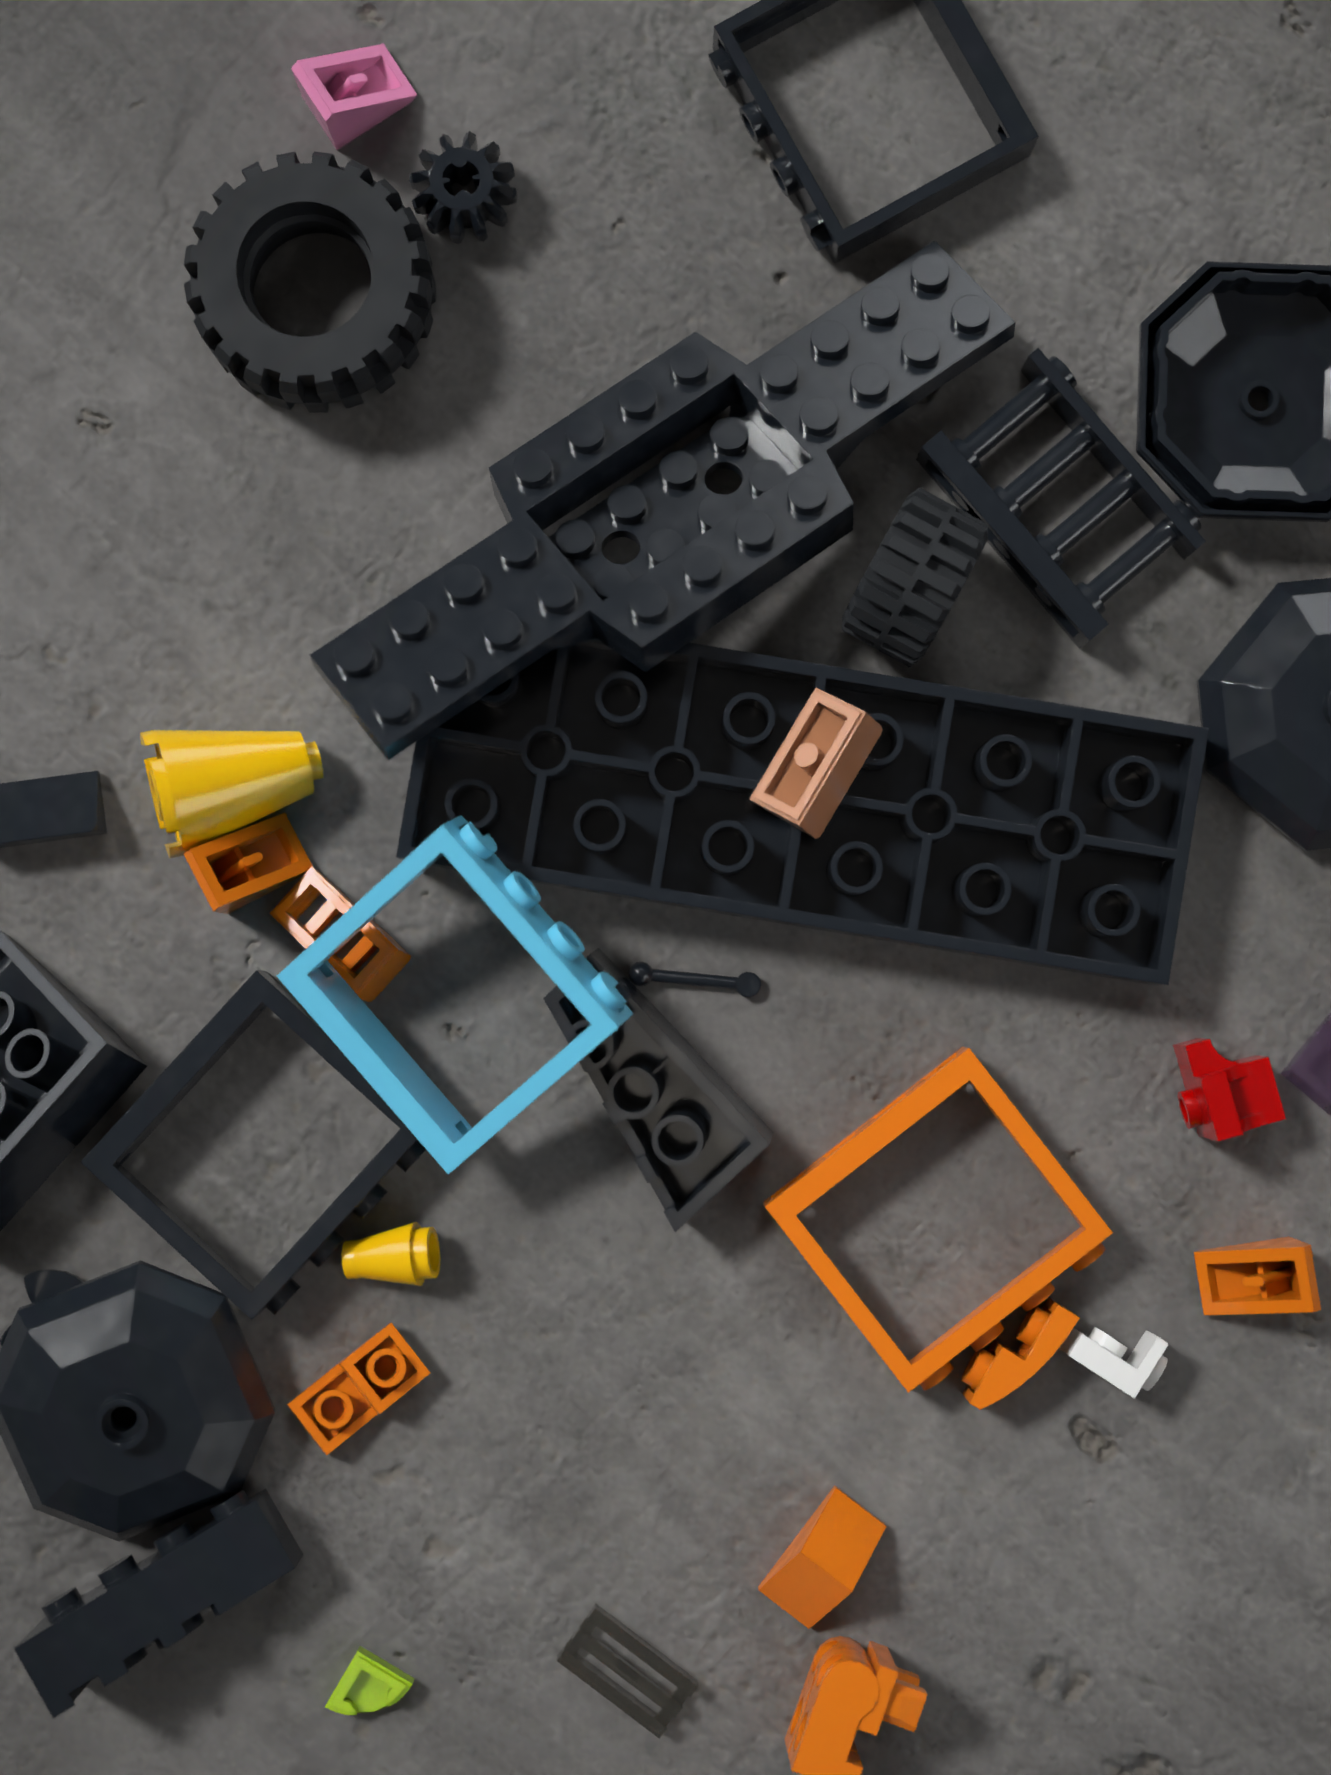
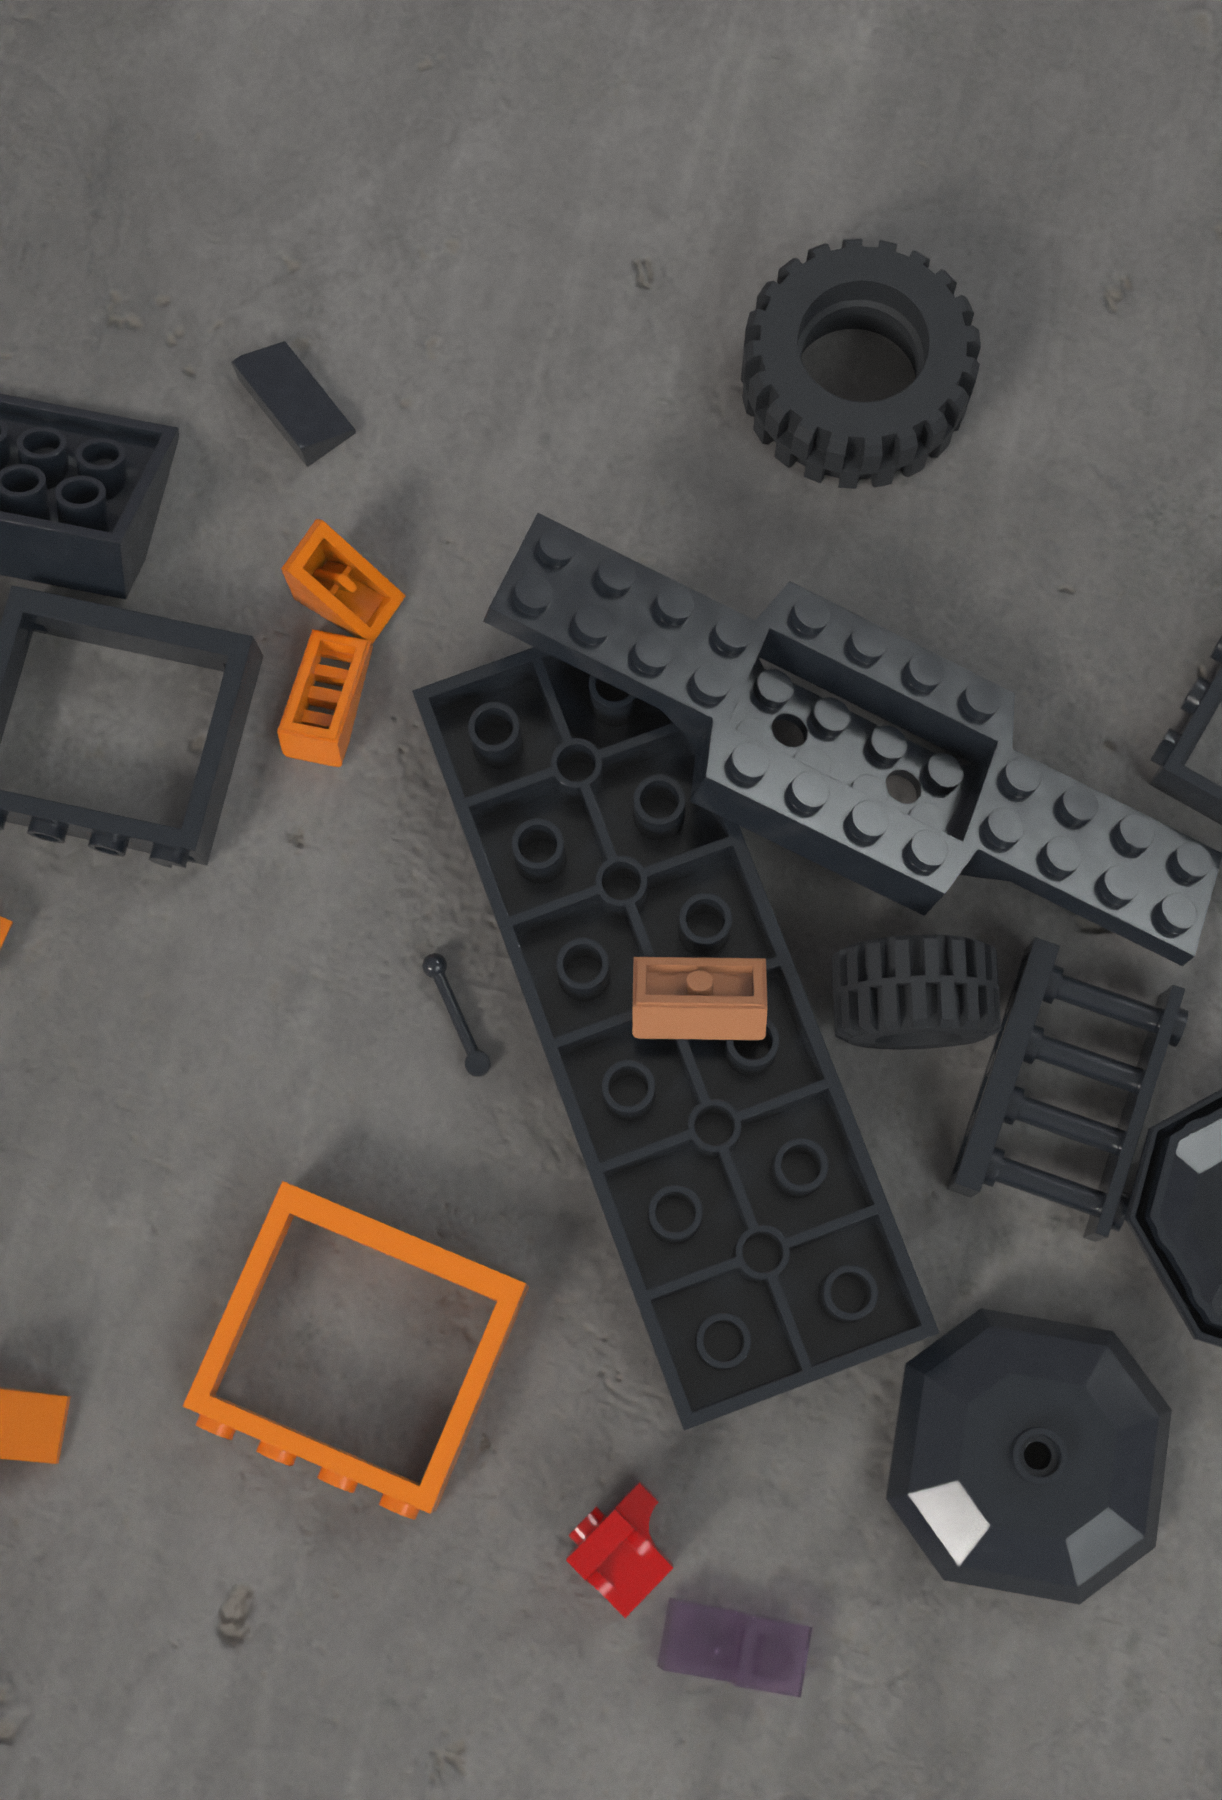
camera: 65 degrees right, 10 degrees down
(225, 779) = (400, 523): yellow cone -> none
(352, 90) = (1040, 311): bright pink slope -> none
(381, 1056) = (237, 768): medium azure window -> none
(395, 1256) = (73, 894): yellow cone -> none
(463, 166) = (1038, 436): black gear -> none
(666, 1100) = (338, 1027): black wedge -> none
(1002, 1370) = (257, 1489): orange slope -> none
(1104, 1354) = (312, 1576): white bracket -> none
(1258, 1278) = (463, 1680): orange slope -> none

